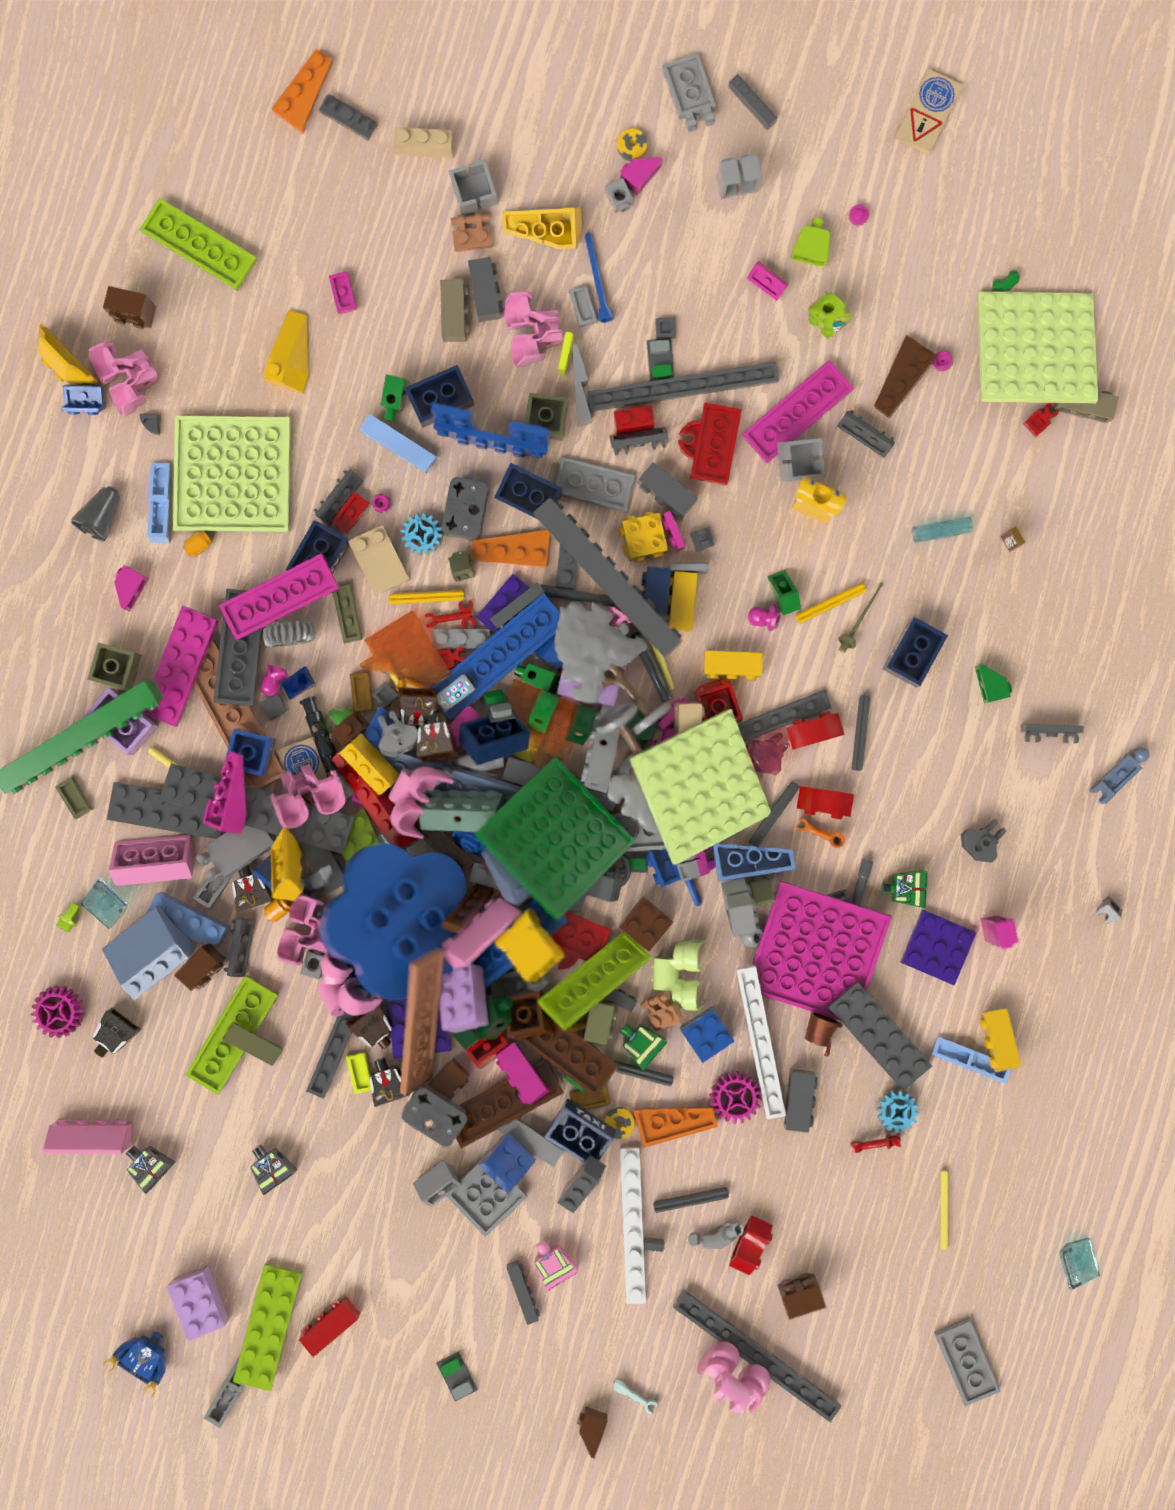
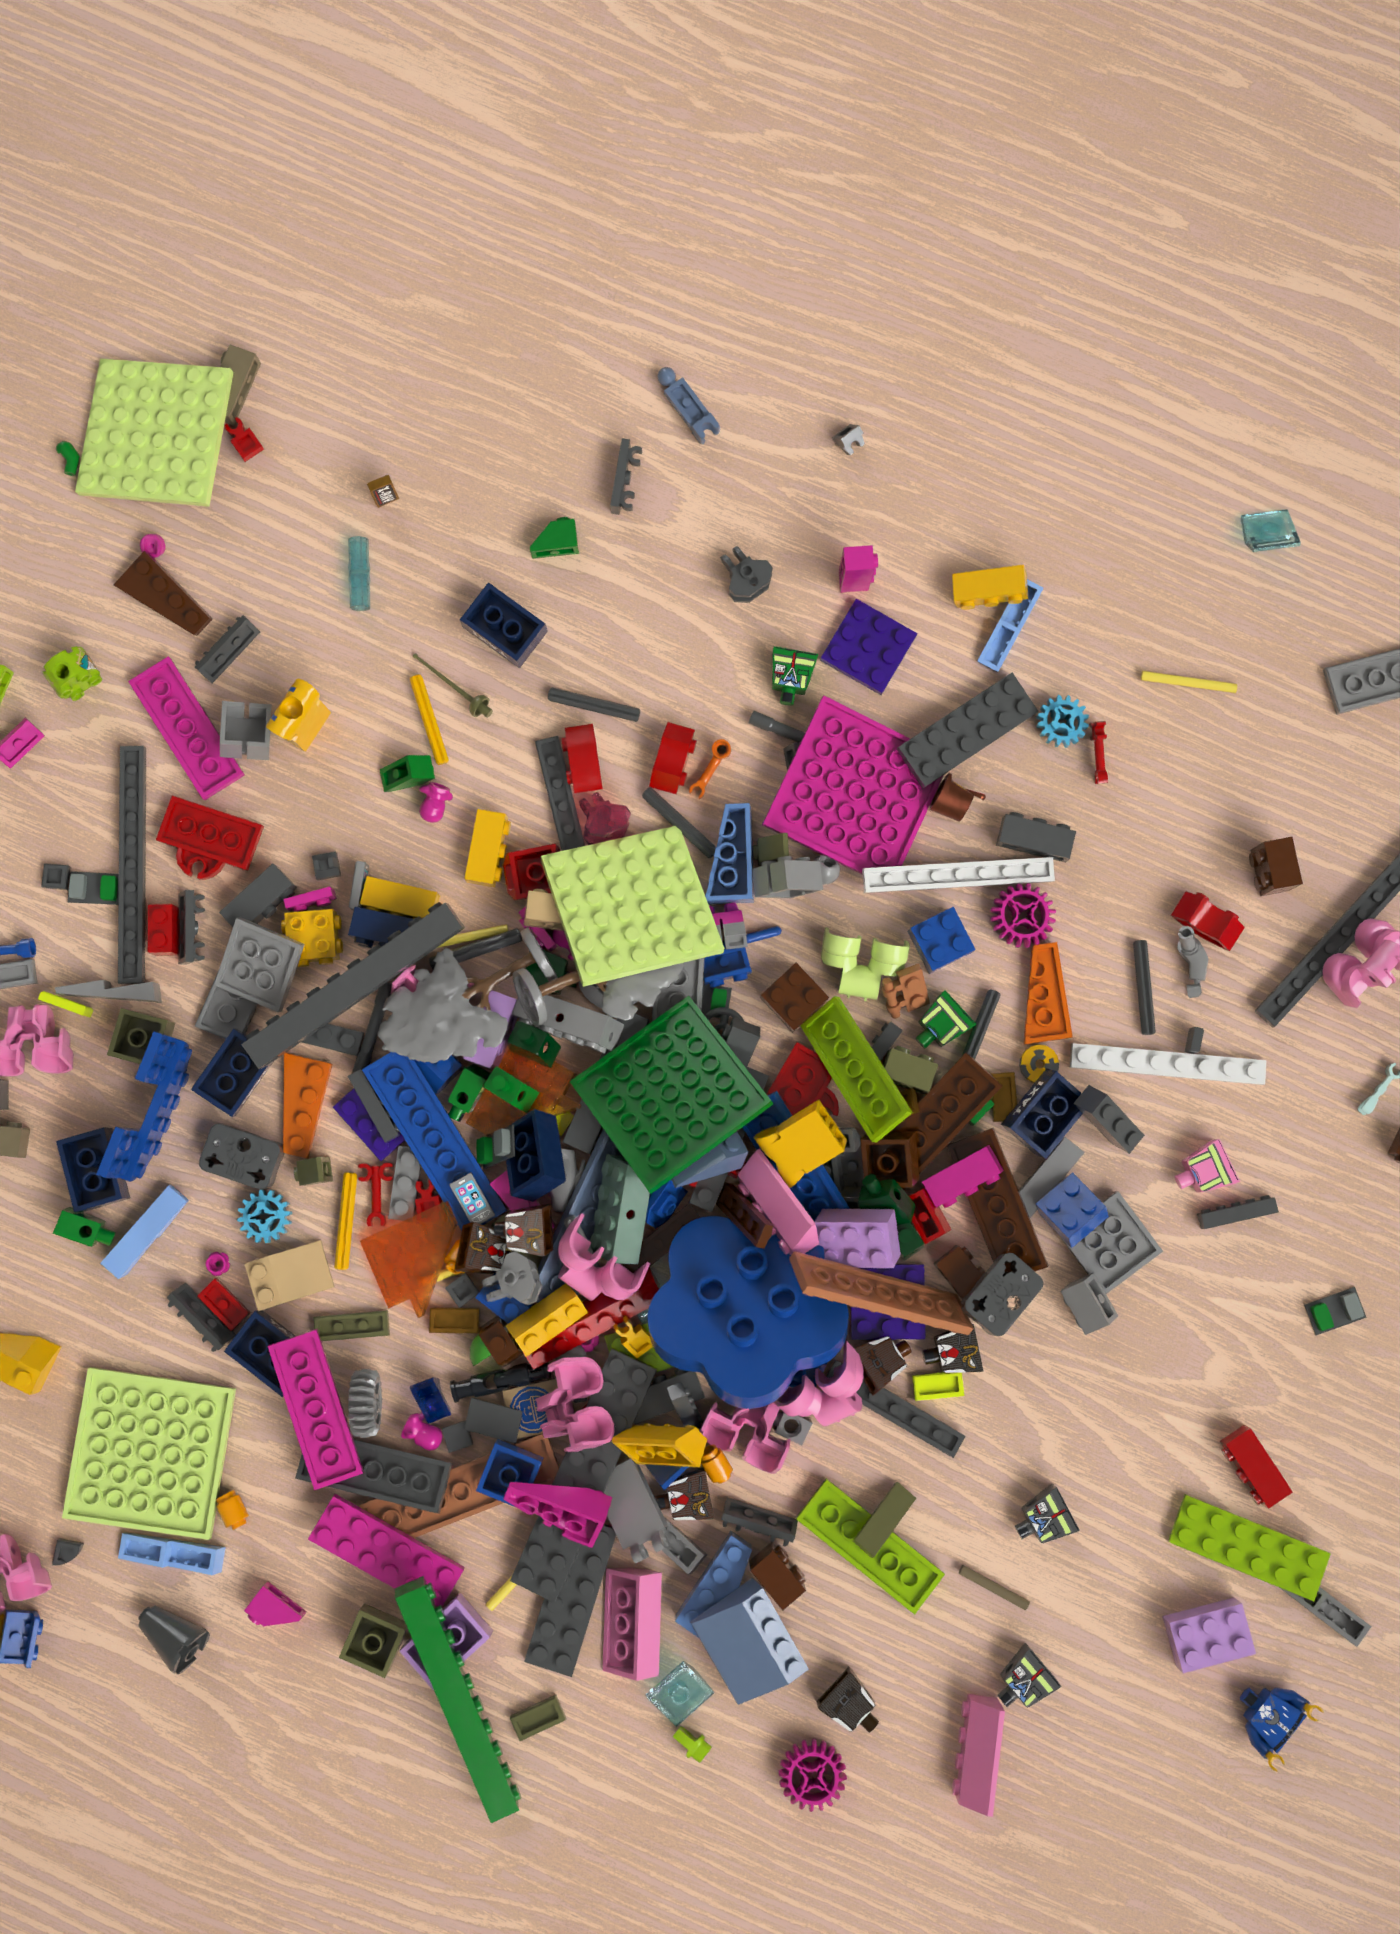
camera: 85 degrees left, 5 degrees down
(213, 1133) = (994, 1587): none -> dark tan bar
(289, 733) = (493, 1420): none -> dark grey piece
(364, 833) = (635, 1339): none -> yellow plate
(615, 500) = (259, 964): none -> light grey plate

